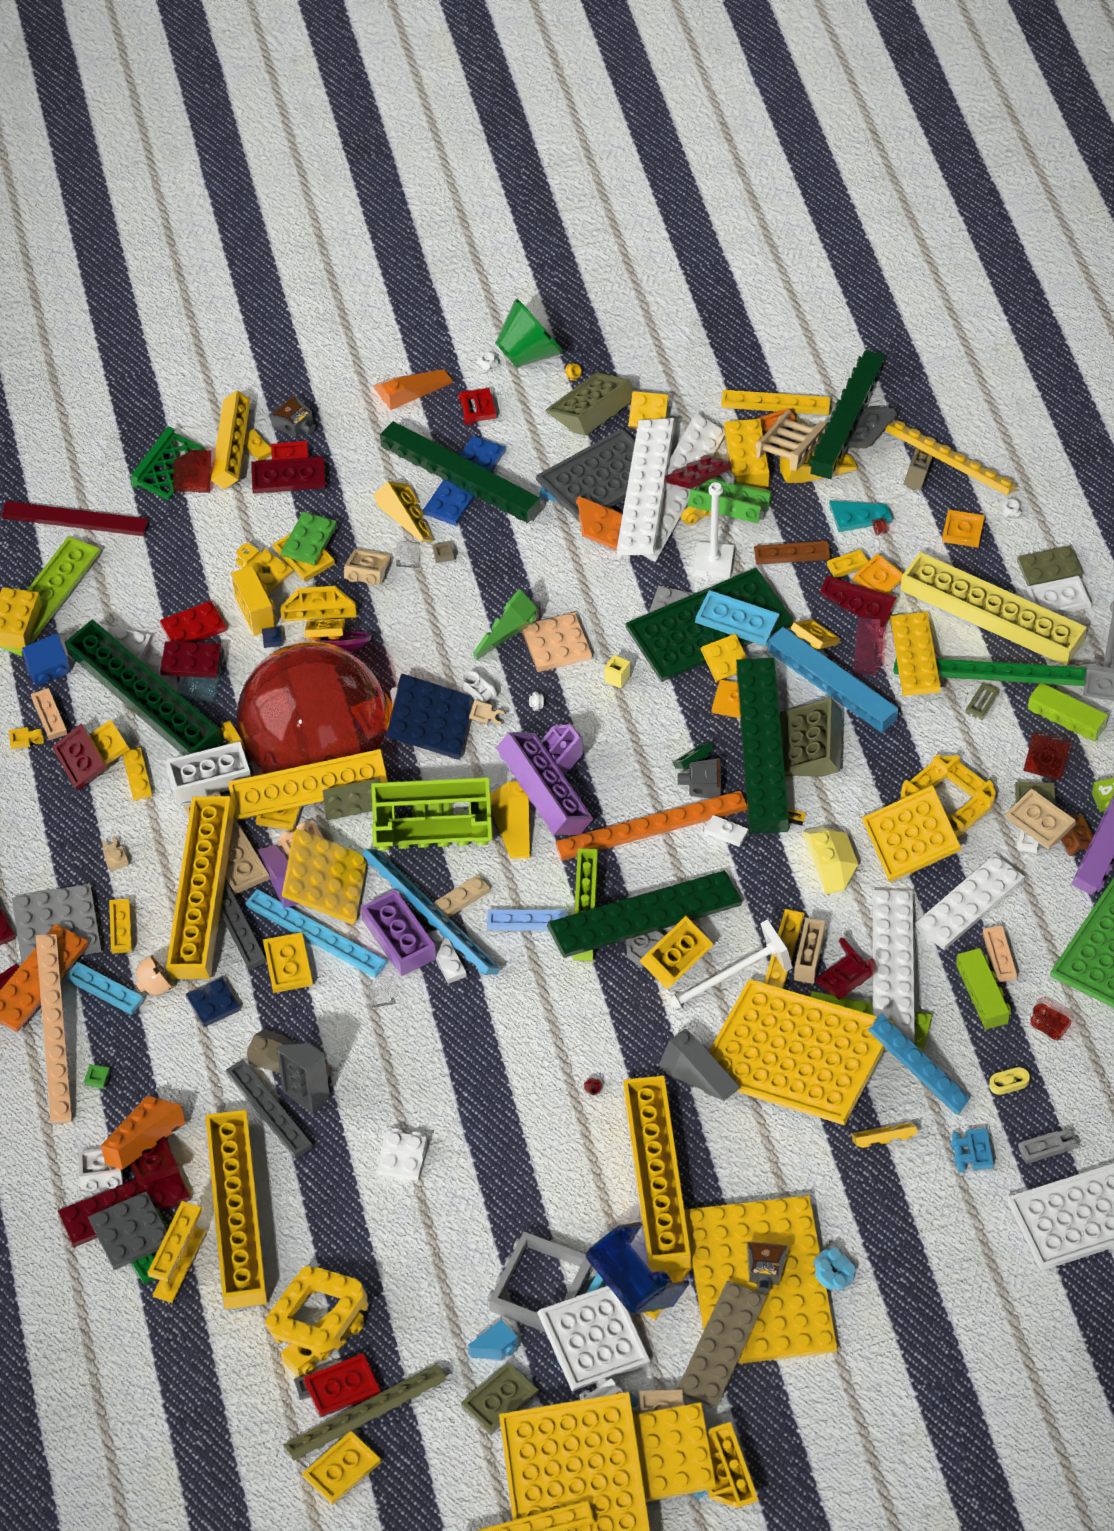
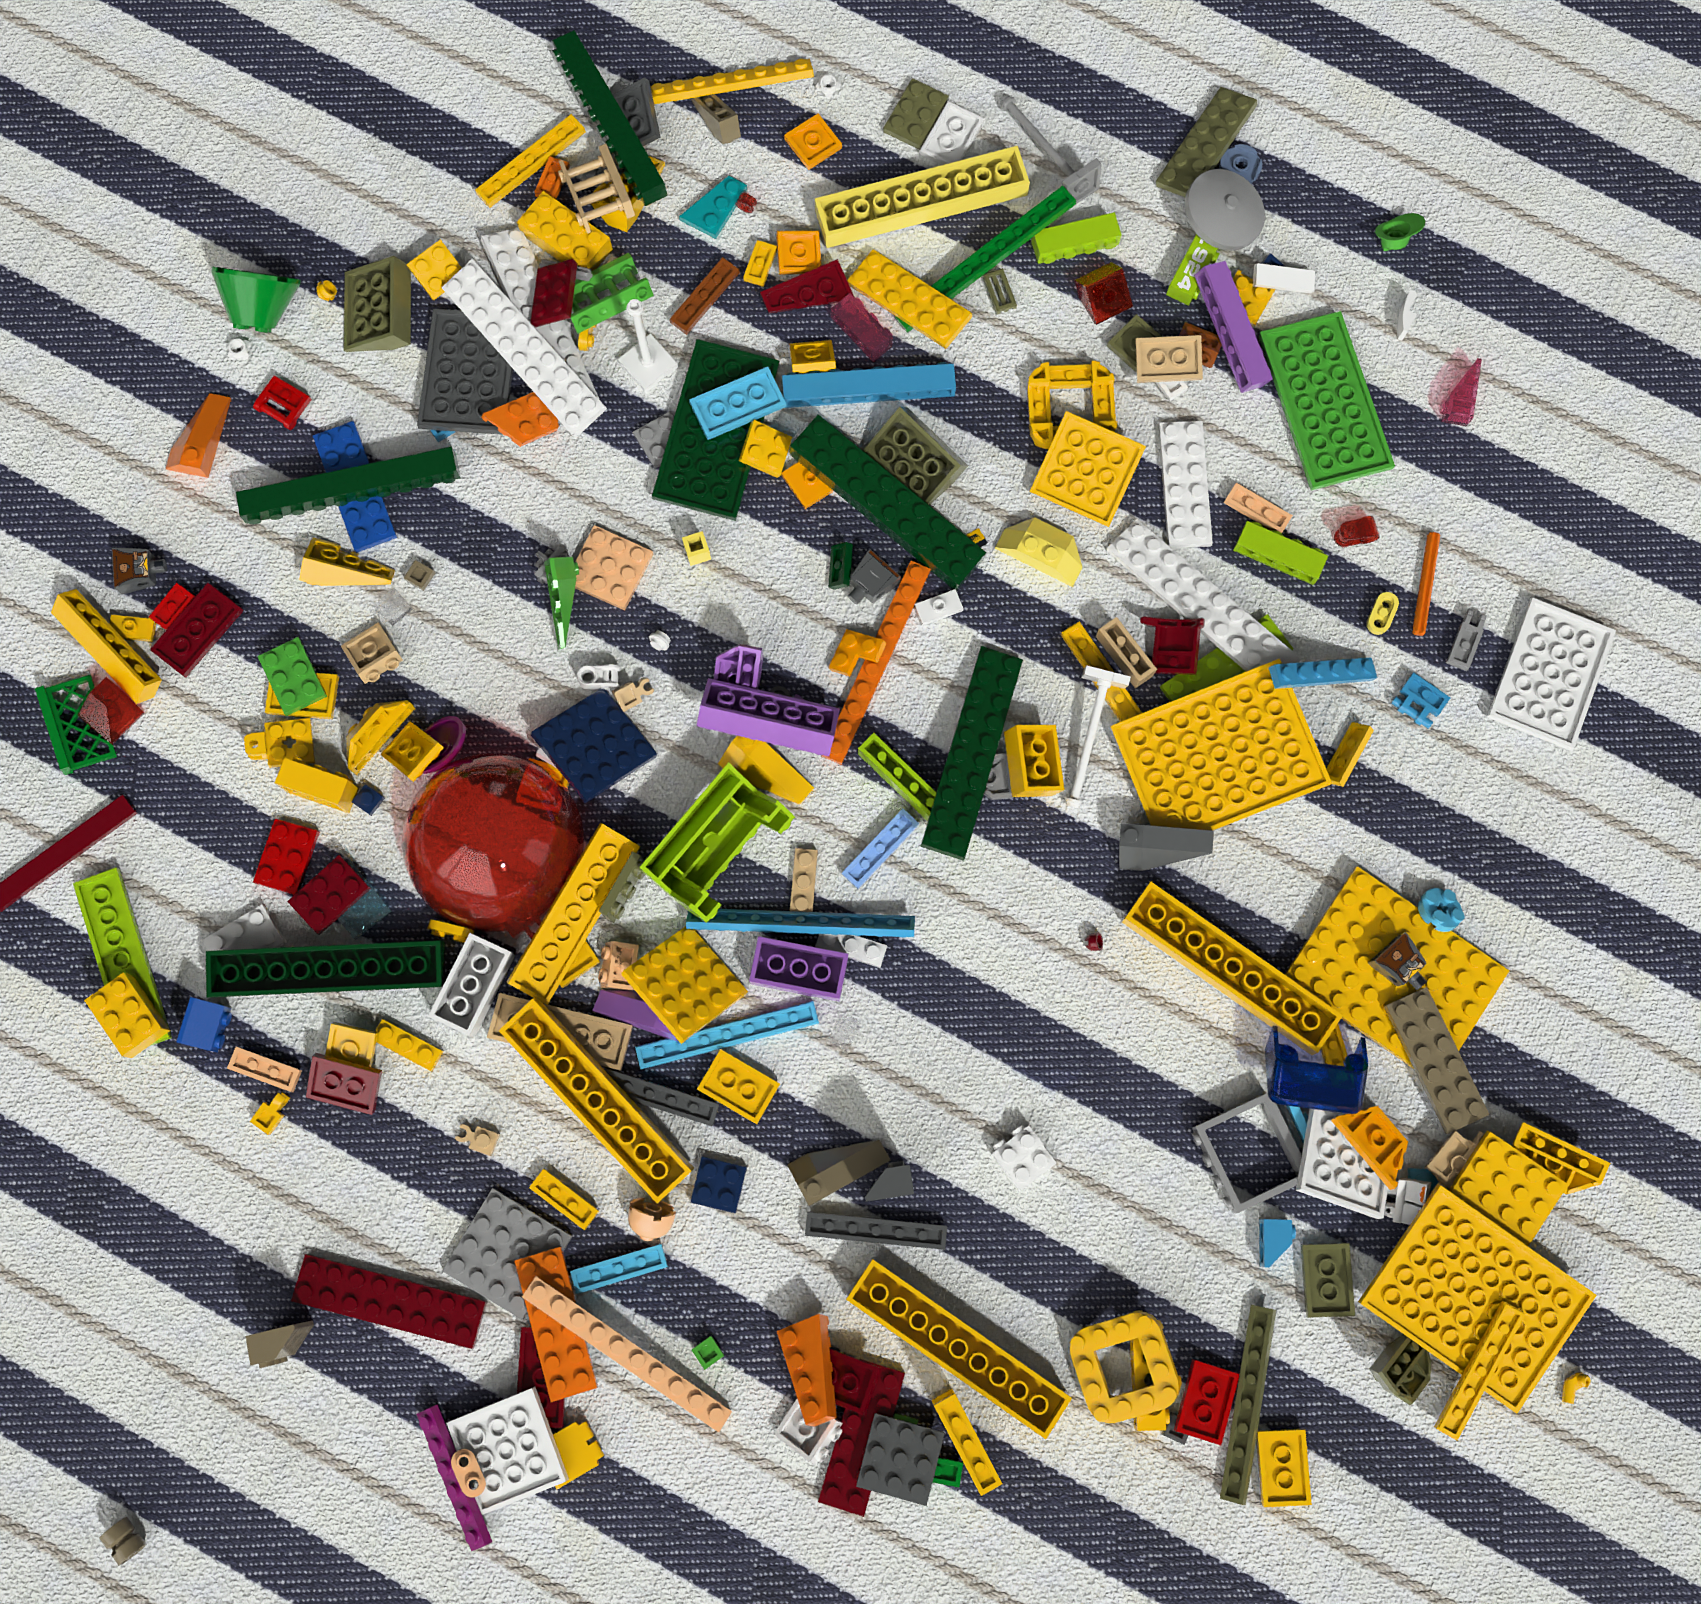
camera: 50 degrees left, 25 degrees up
(479, 1478) = (1403, 1369): none -> olive wedge
(623, 1343) = (1375, 1141): none -> light orange wing
(647, 803) = (855, 646): none -> light orange plate
(1061, 1092) = (1426, 584): none -> orange axle

